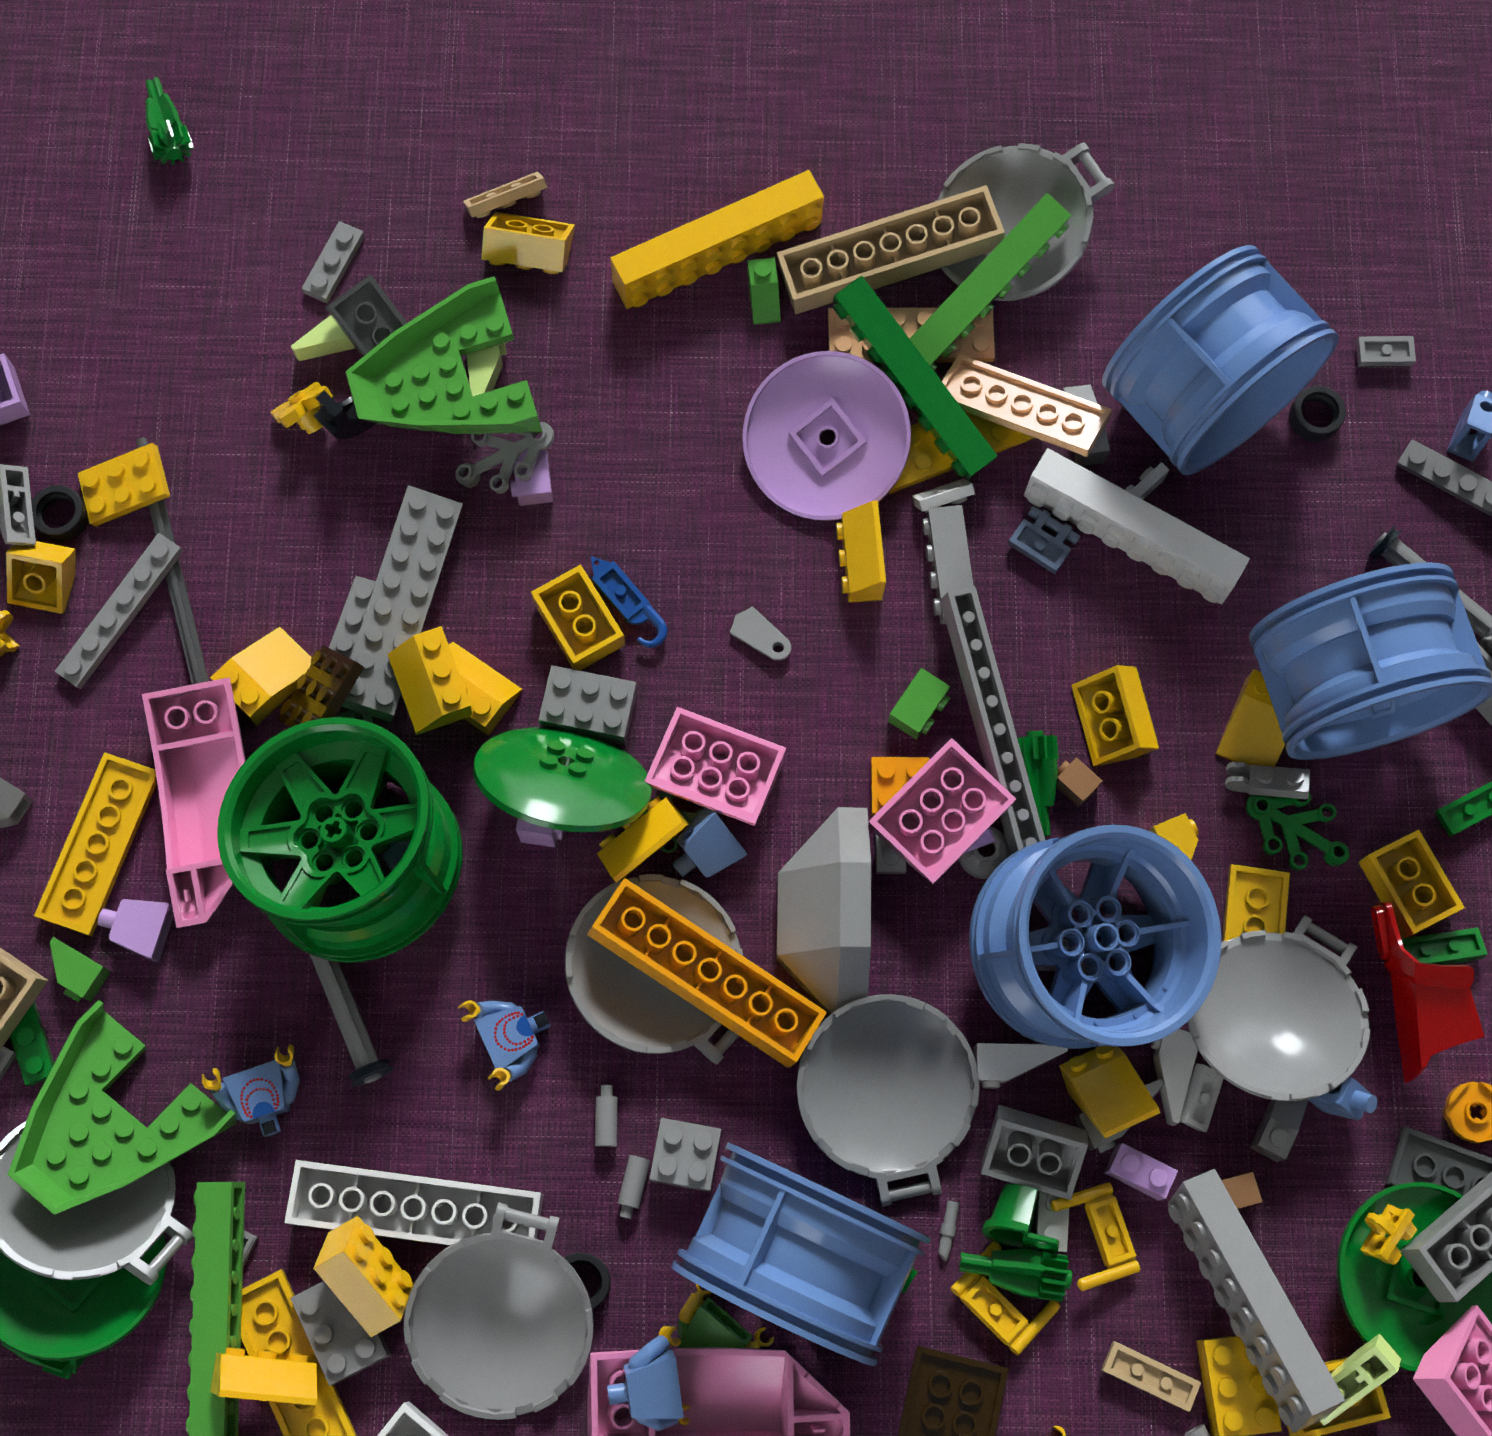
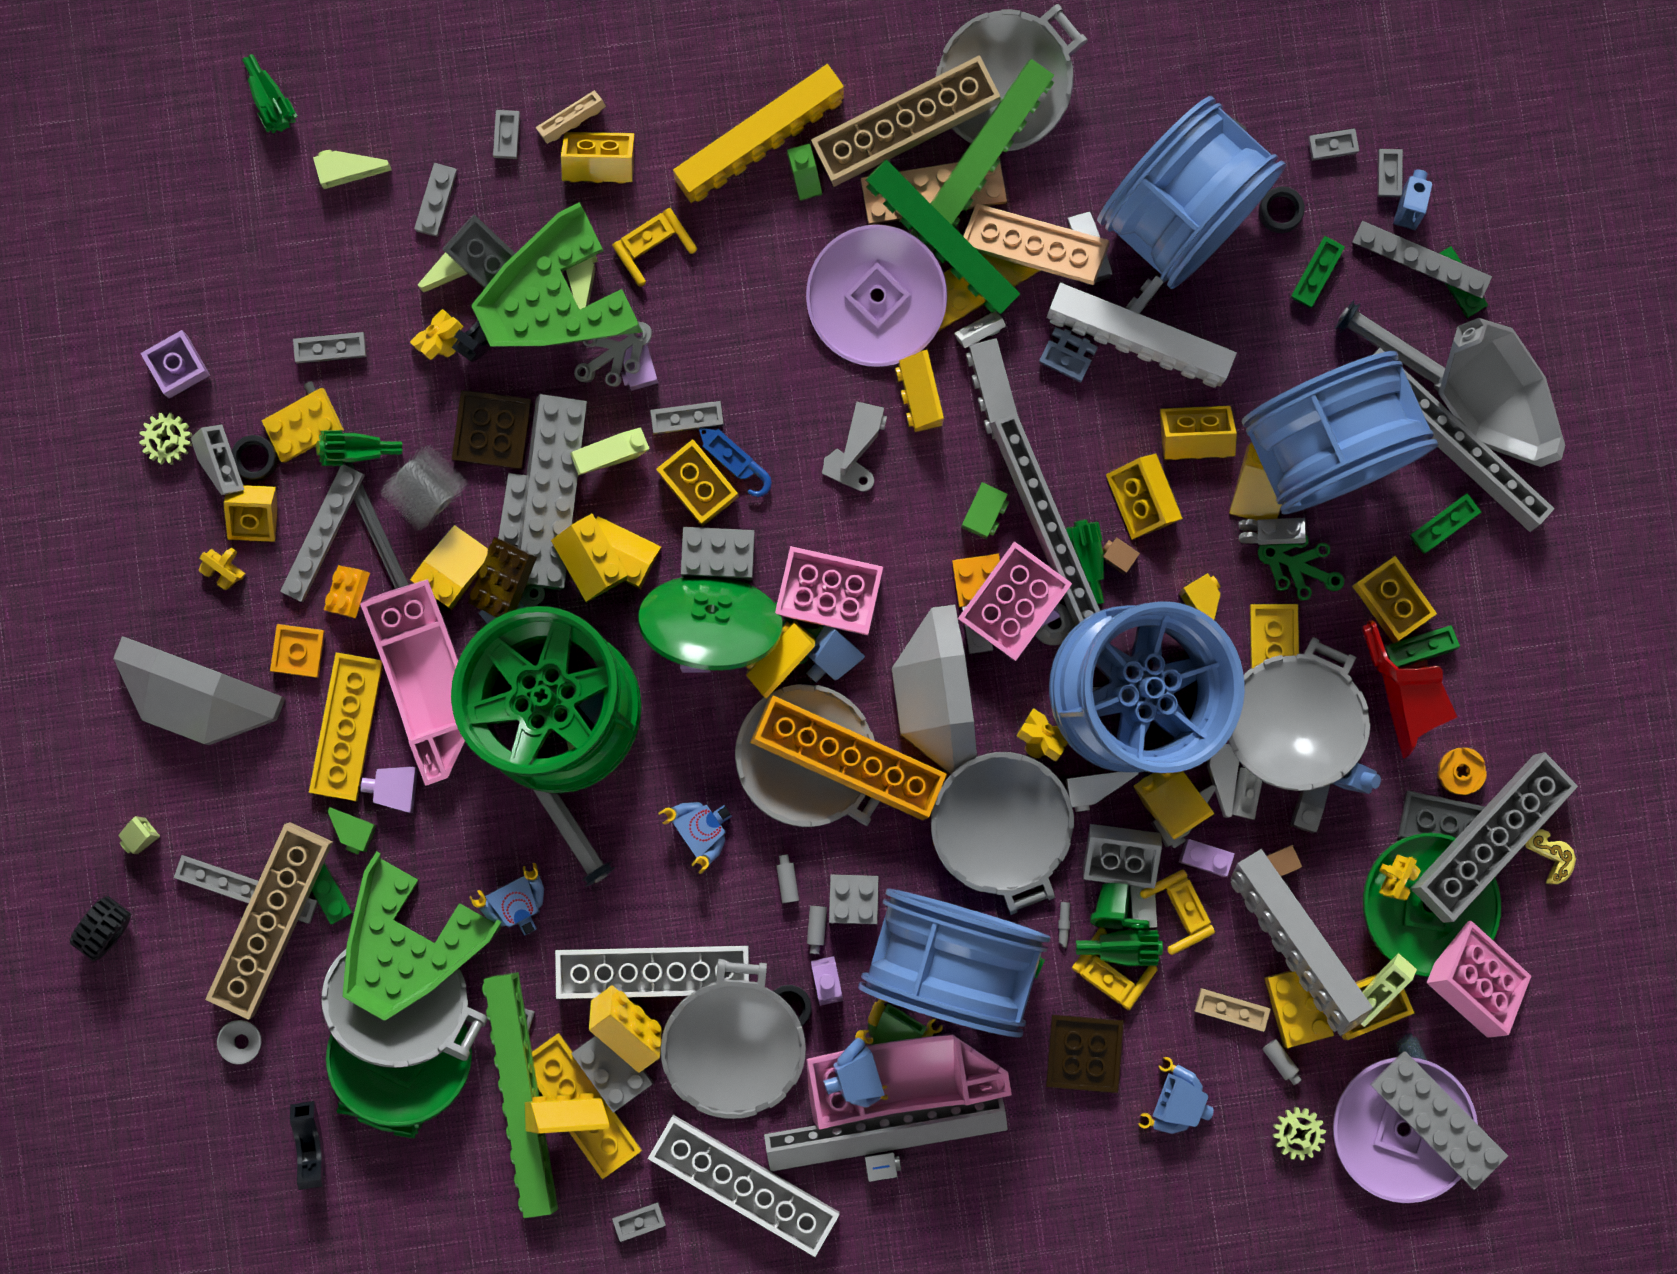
camera: 10 degrees left, 10 degrees up
(59, 744) = (297, 650): none -> light orange plate
(132, 681) = (346, 591): none -> light orange plate
(174, 515) = (352, 447): none -> green piece
(175, 403) = (329, 347): none -> light grey plate
(233, 211) = (341, 167): none -> yellowish green slope
(248, 571) = (424, 487): none -> light grey piece
(345, 523) = (491, 429): none -> dark brown plate
(428, 203) = (506, 134): none -> light grey plate
(480, 565) = (610, 451): none -> yellowish green slope
(569, 337) = (647, 237): none -> yellow plate
(579, 543) = (687, 417): none -> light grey plate
(634, 1256) = (826, 980): none -> lavender torso
(785, 592) = (863, 431): none -> light grey slope
(952, 986) = (1041, 737): none -> yellow plant
(1189, 652) = (1198, 432): none -> yellow slope
(1352, 490) = (1317, 272): none -> green plate
(1449, 392) = (1389, 173): none -> light grey plate

